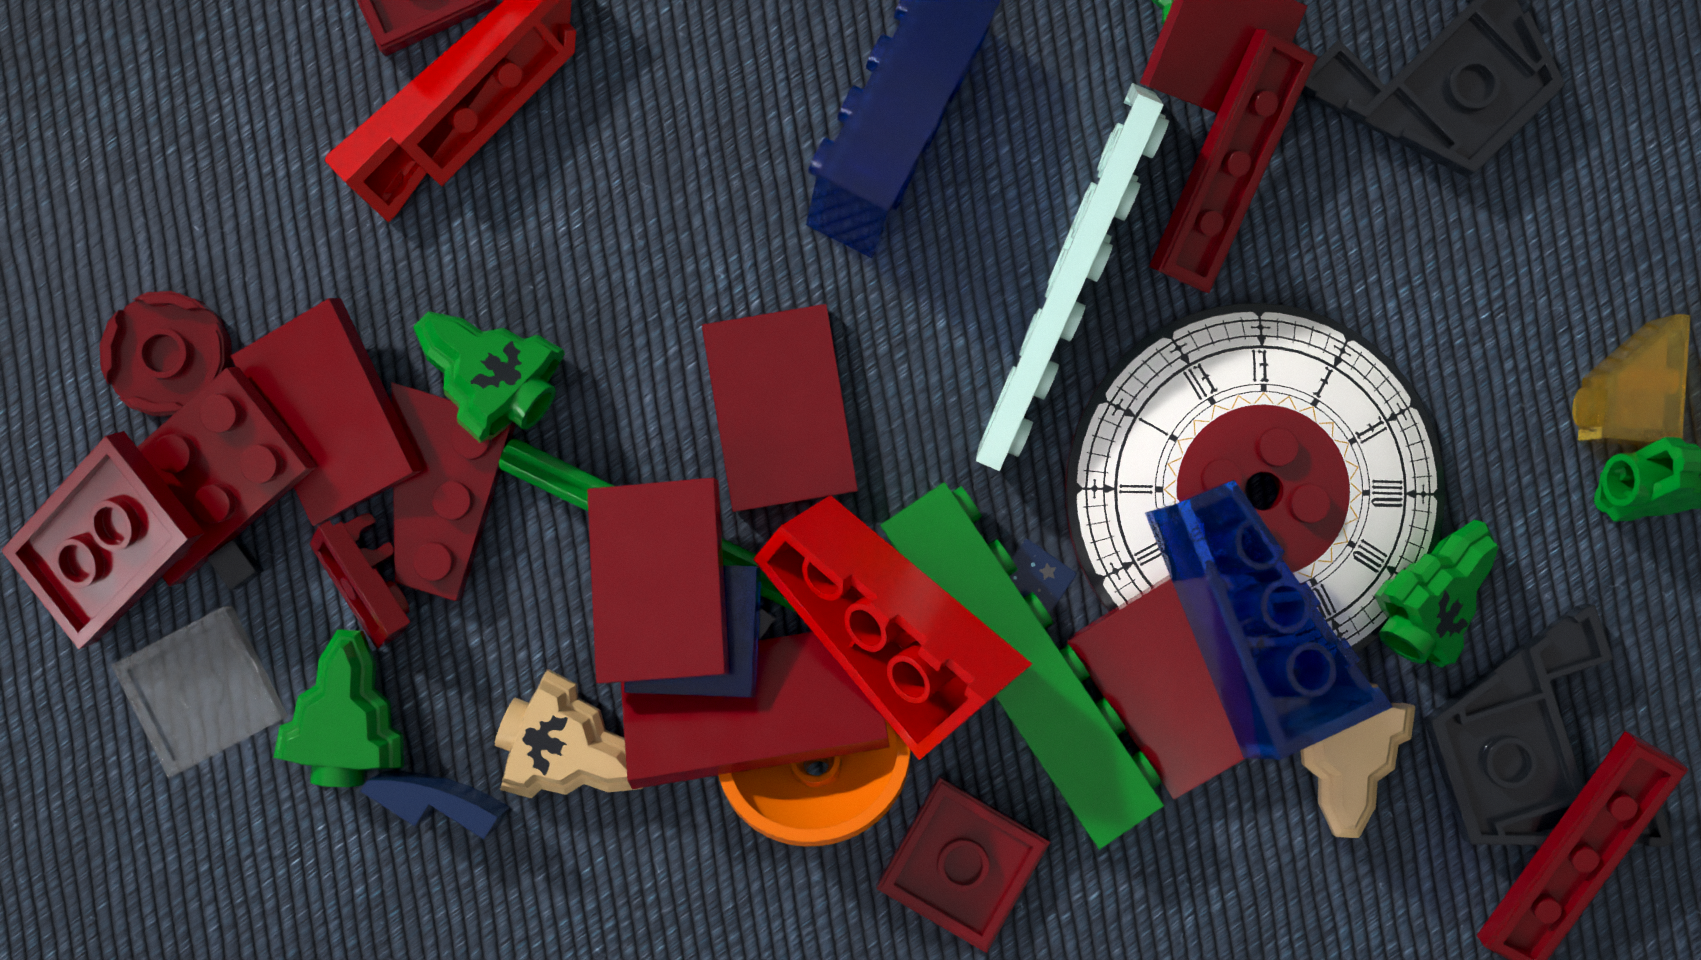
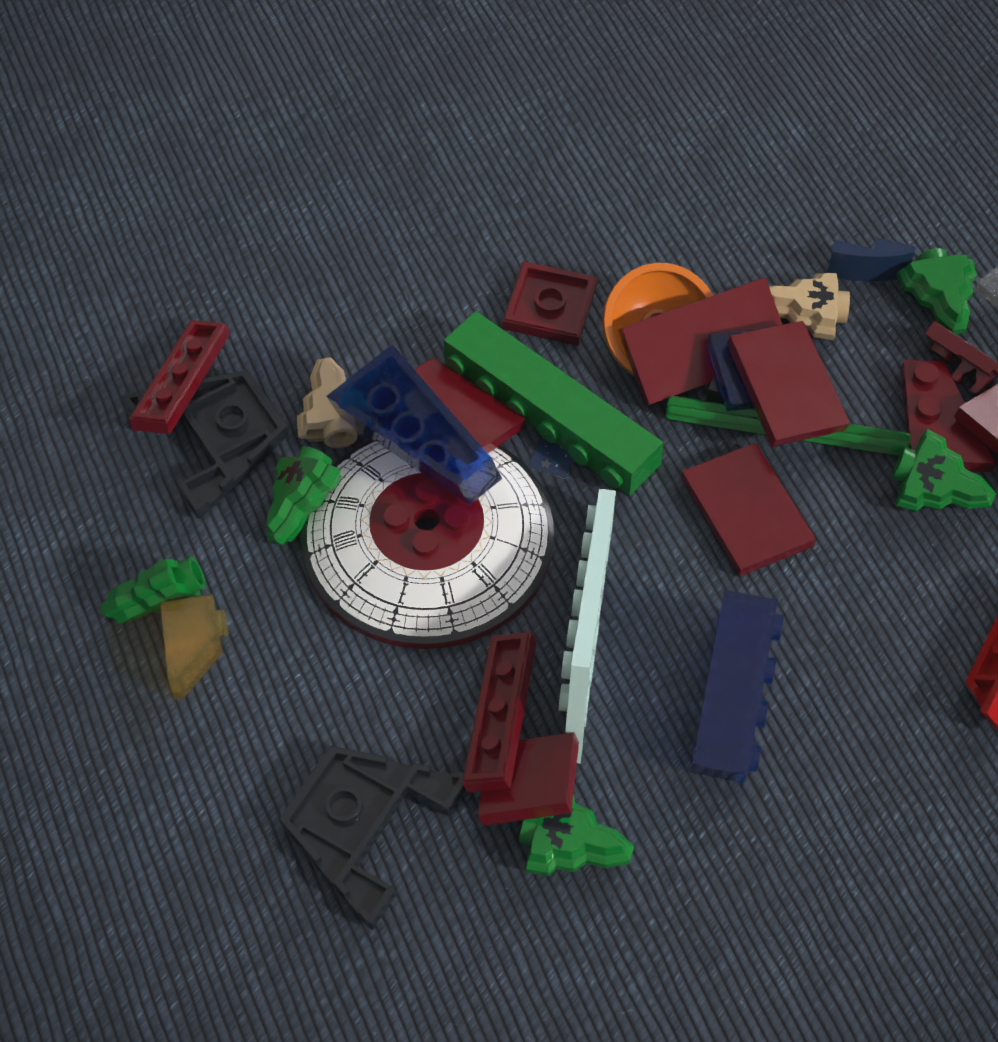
camera: 165 degrees right, 30 degrees down
(888, 624) = (642, 388): red wedge -> none

